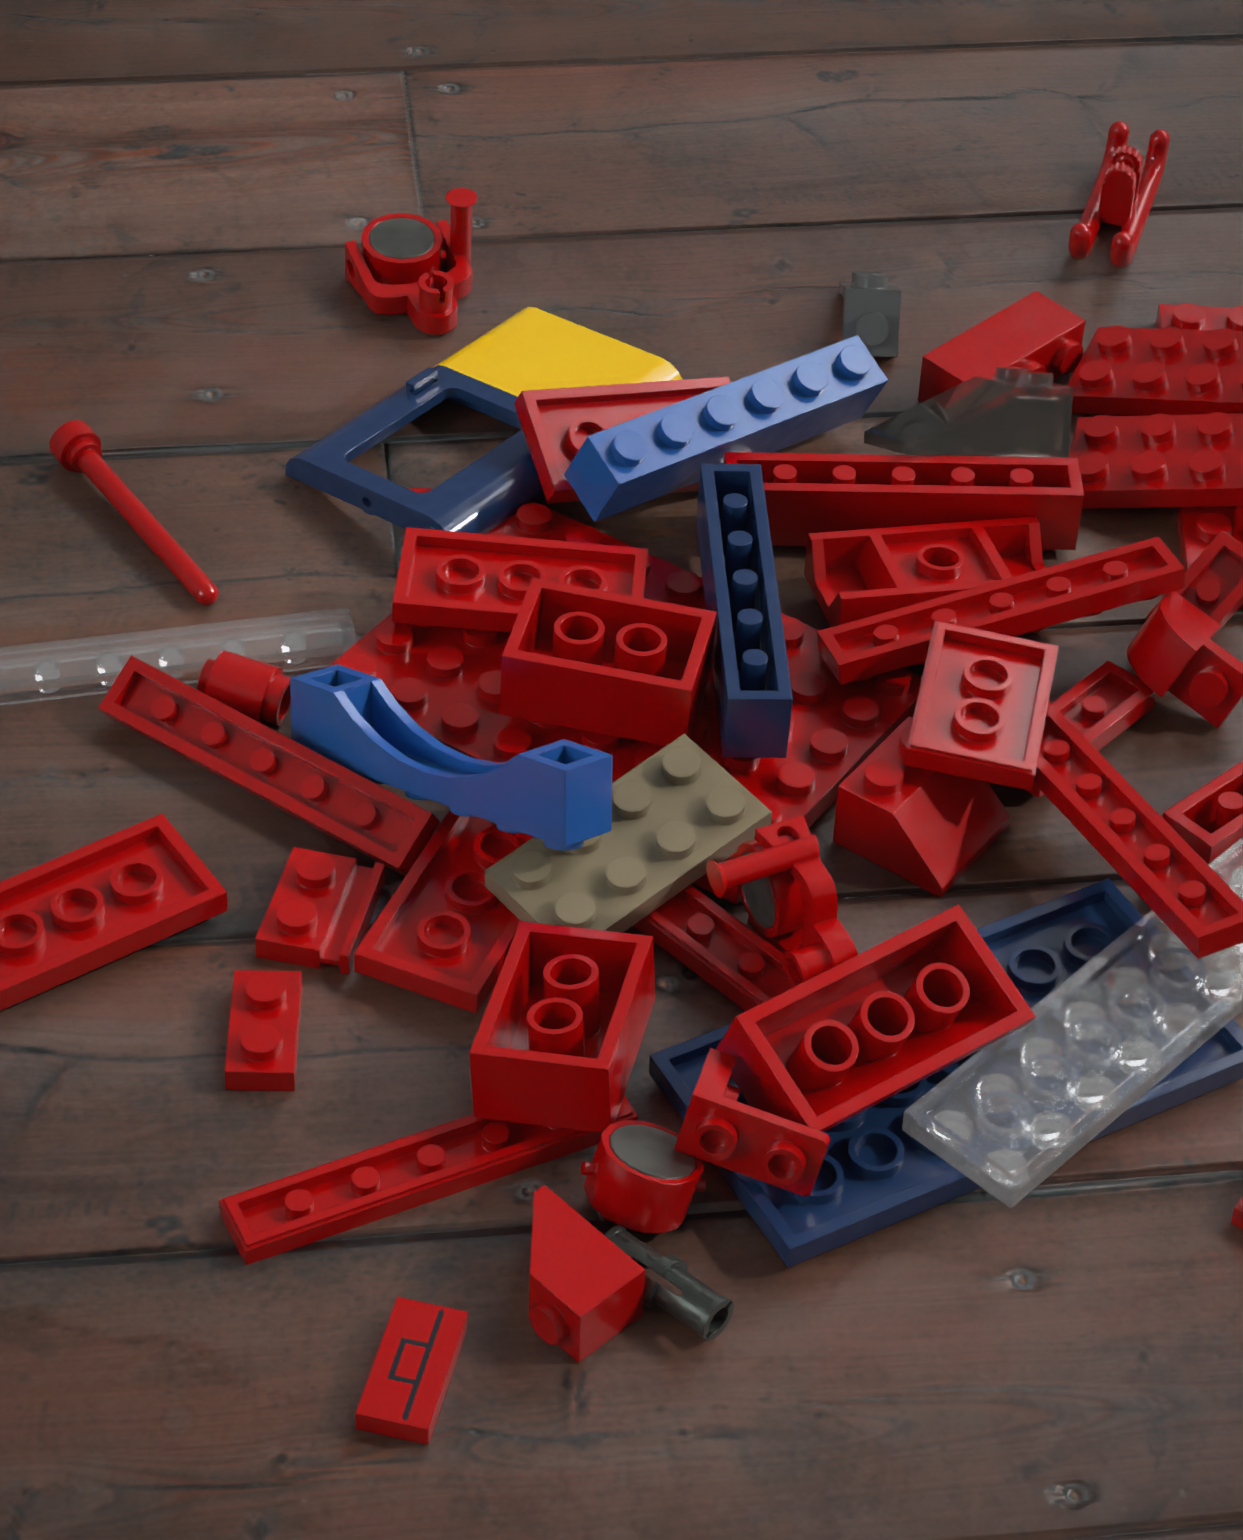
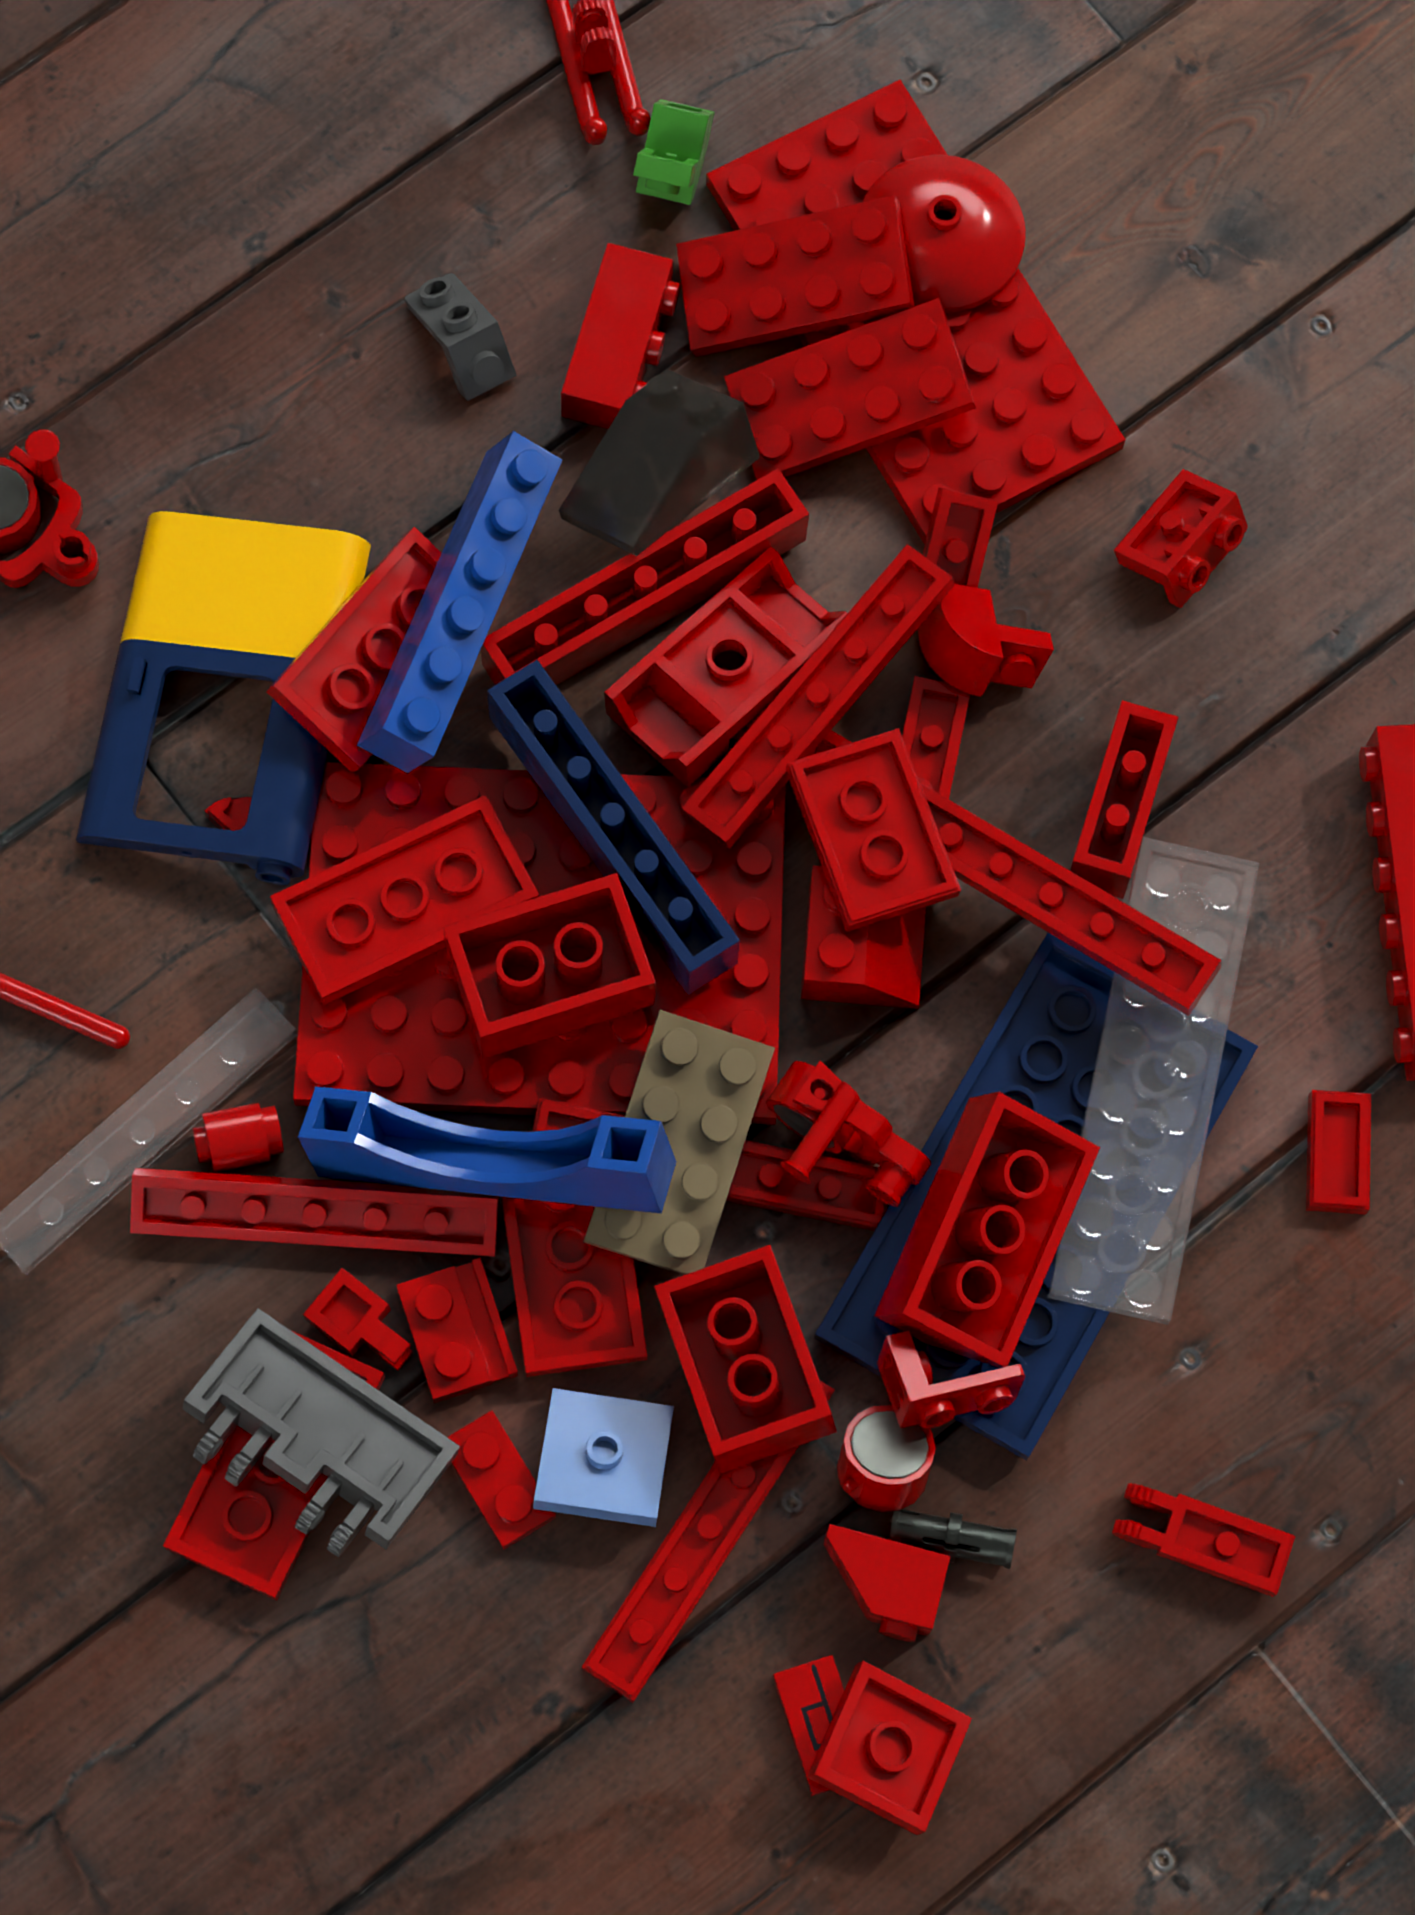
camera: 35 degrees left, 30 degrees up
(132, 887) = (320, 1424): none -> dark grey hinge
(239, 849) = (354, 1316): none -> red plate
(373, 1052) = (603, 1457): none -> medium blue plate
(462, 1406) = (889, 1748): none -> red plate
(932, 1419) = (1210, 1539): none -> red hinge
(1139, 273) = (673, 151): none -> bright green brick

